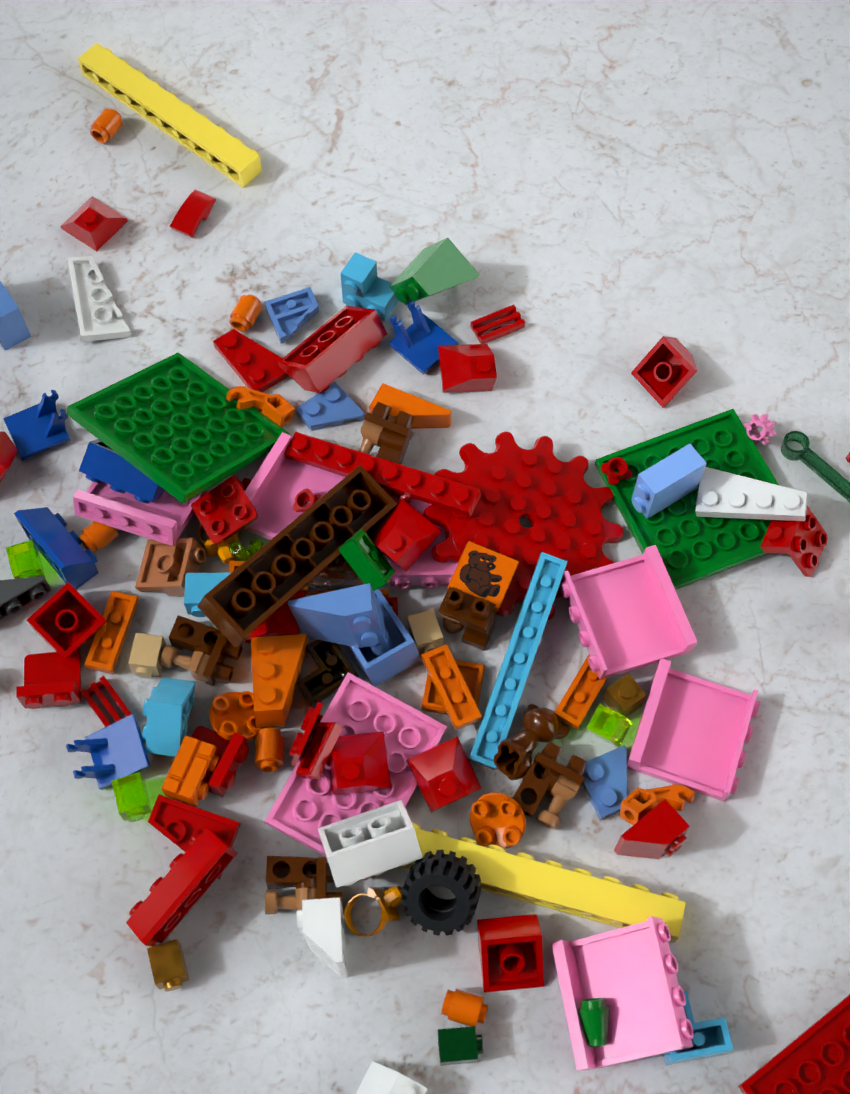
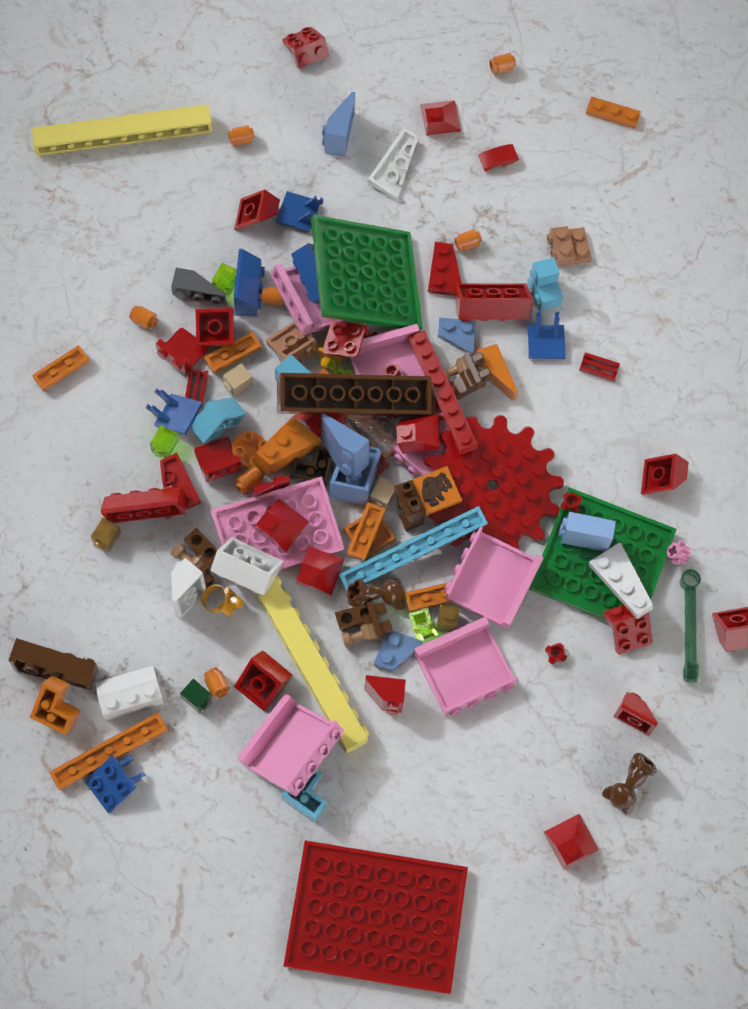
camera: 40 degrees right, 5 degrees up
(171, 115) = (544, 86): light yellow brick -> none
(191, 771) = (201, 455): orange brick -> none
(209, 652) = (265, 407): reddish brown hips -> none
(260, 90) = (613, 112): none -> orange plate
(272, 406) = (421, 291): orange piece -> none
(291, 312) = (493, 261): medium blue wing -> none
(319, 750) = (266, 500): red tile -> none
(348, 236) = (569, 245): none -> nougat plate
(366, 560) = (385, 429): green slope -> none
(432, 272) = (586, 306): green slope -> none
(438, 913) = (245, 620): black tyre -> none
(467, 368) = (554, 375): red slope -> none
(497, 820) = (320, 615): orange dish -> none
(595, 1020) = (268, 745): green cone -> none
(642, 801) = (416, 684): orange piece -> none
(757, 624) = (559, 648): none -> red plate

